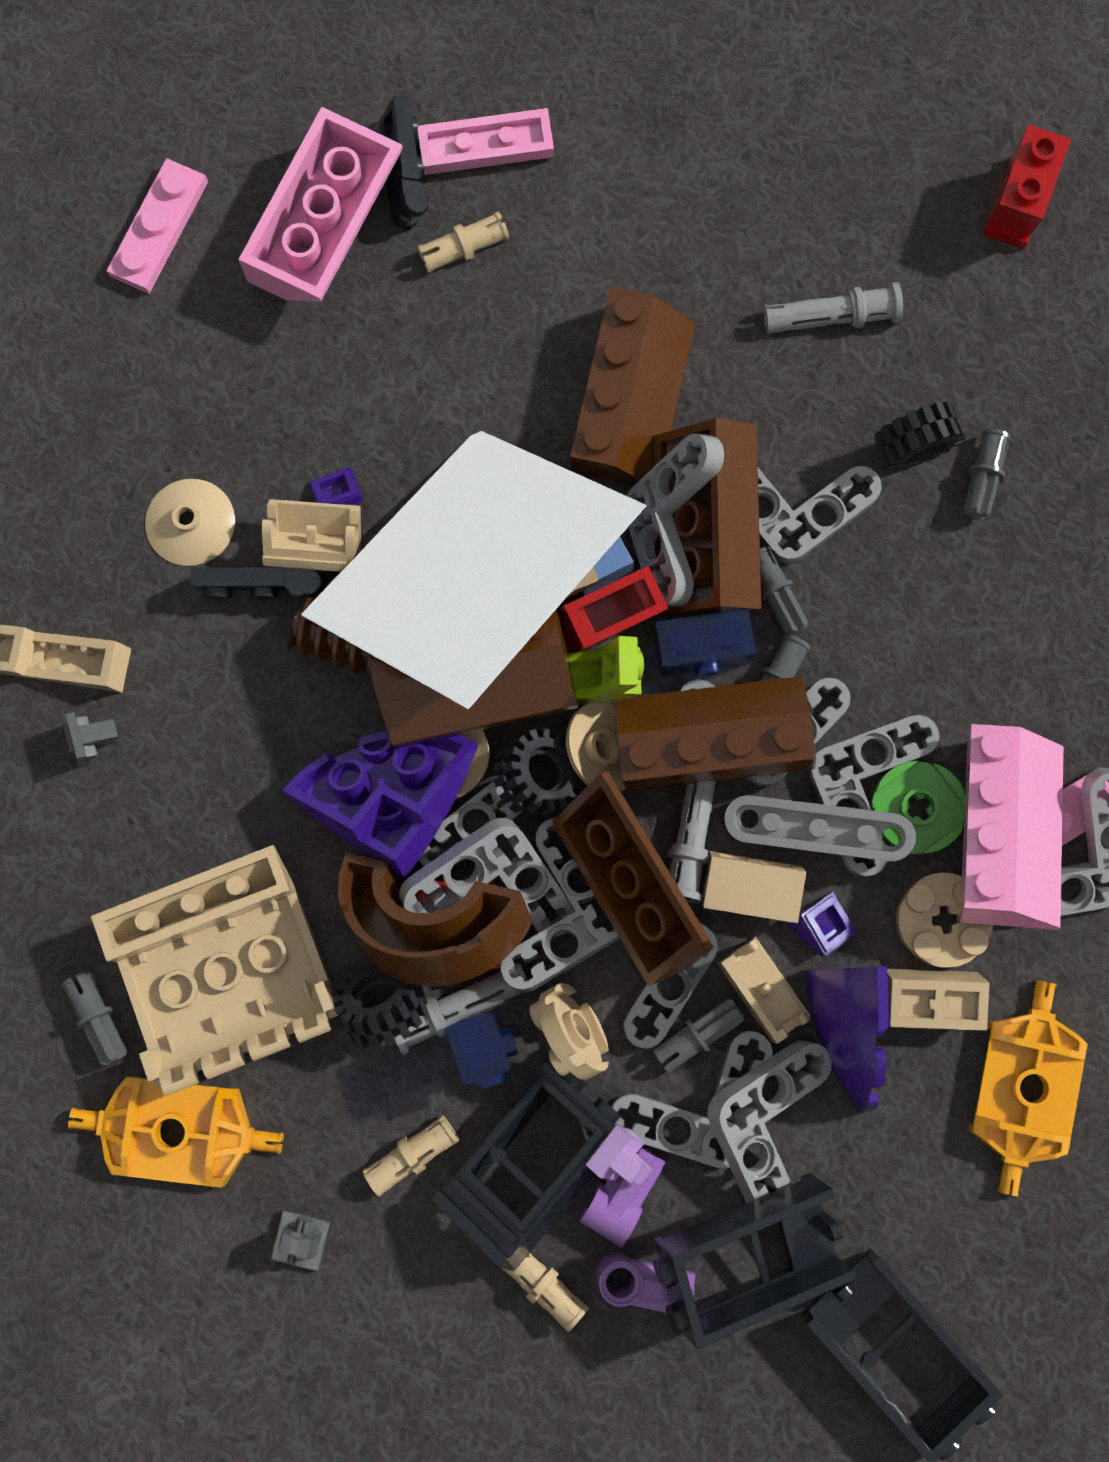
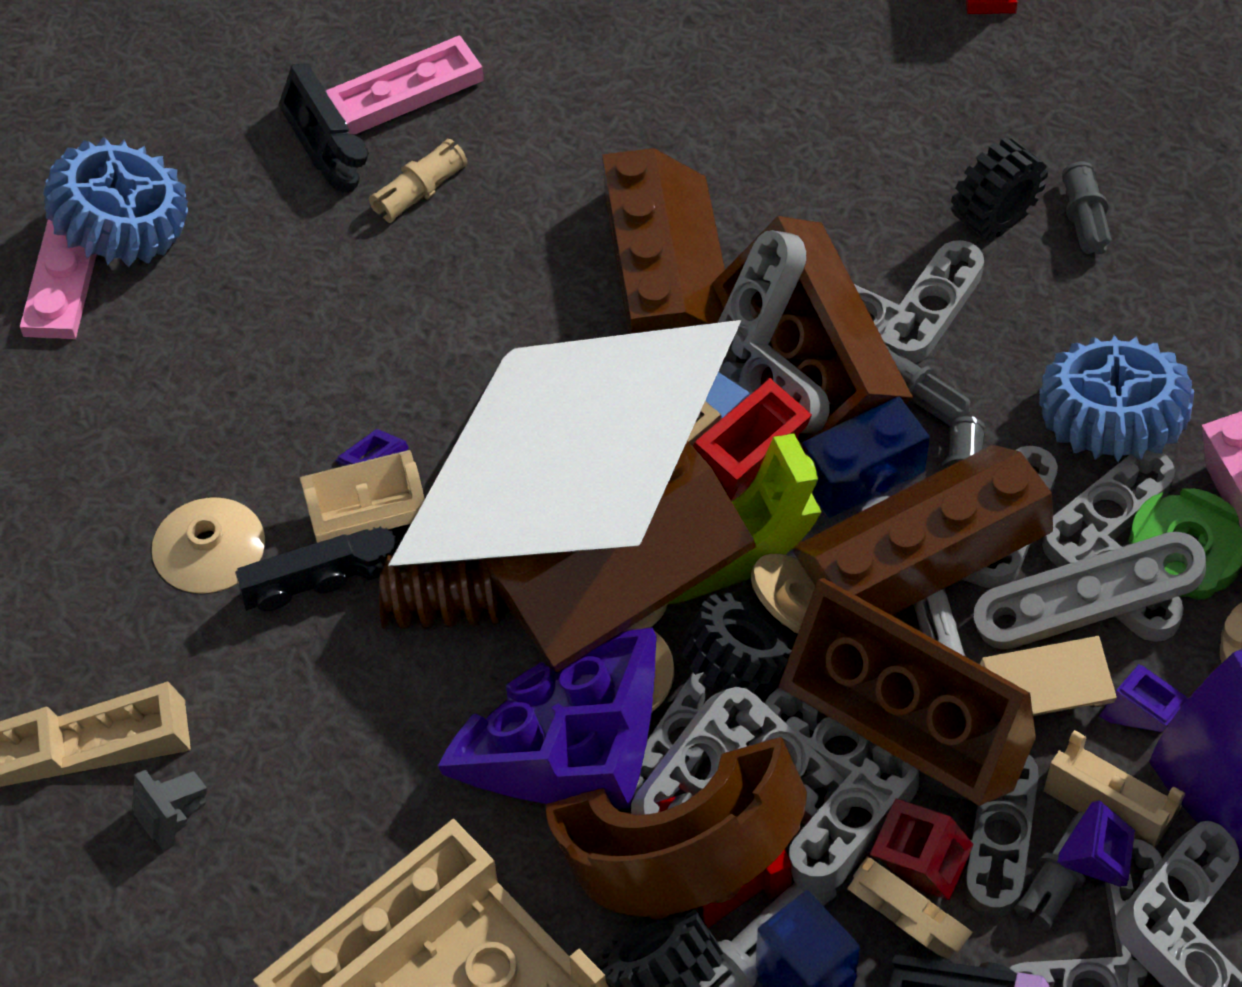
camera: 20 degrees left, 25 degrees down
(244, 181) = (115, 201): none -> medium blue gear
(318, 208) = (247, 190): bright pink slope -> none
(600, 989) = (923, 848): none -> dark red brick
(729, 1037) = (1100, 846): none -> dark purple slope
(852, 308) = (869, 108): light grey pin -> none
(948, 665) = (1116, 398): none -> medium blue gear

